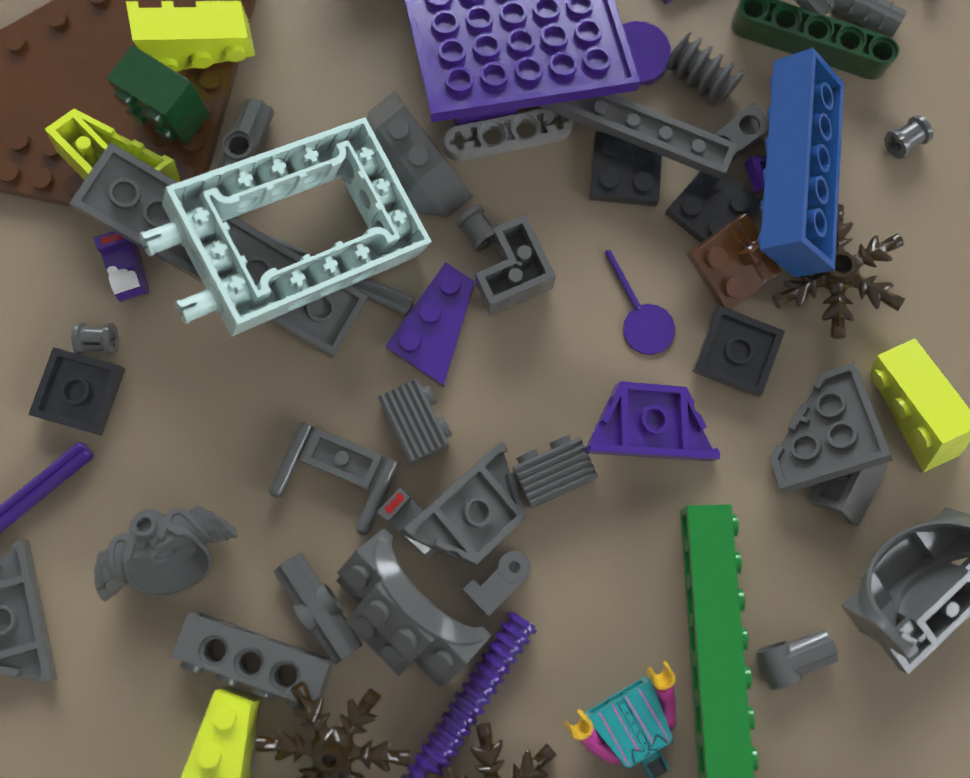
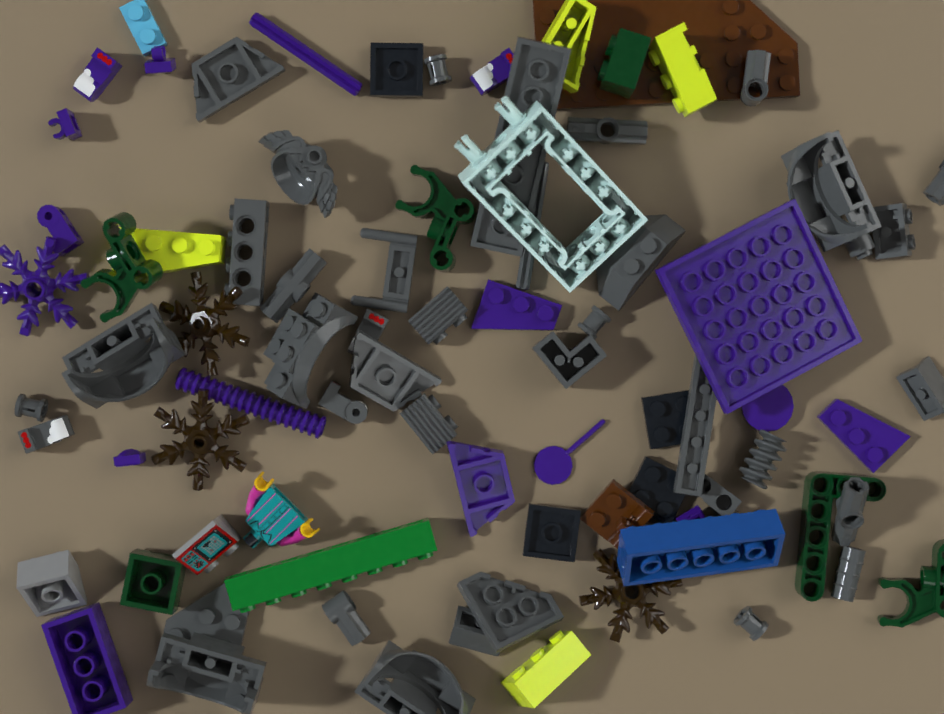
camera: 80 degrees right, 10 degrees up
(291, 377) = (446, 221): none -> dark green piece
(507, 128) = (669, 326): light grey beam -> none

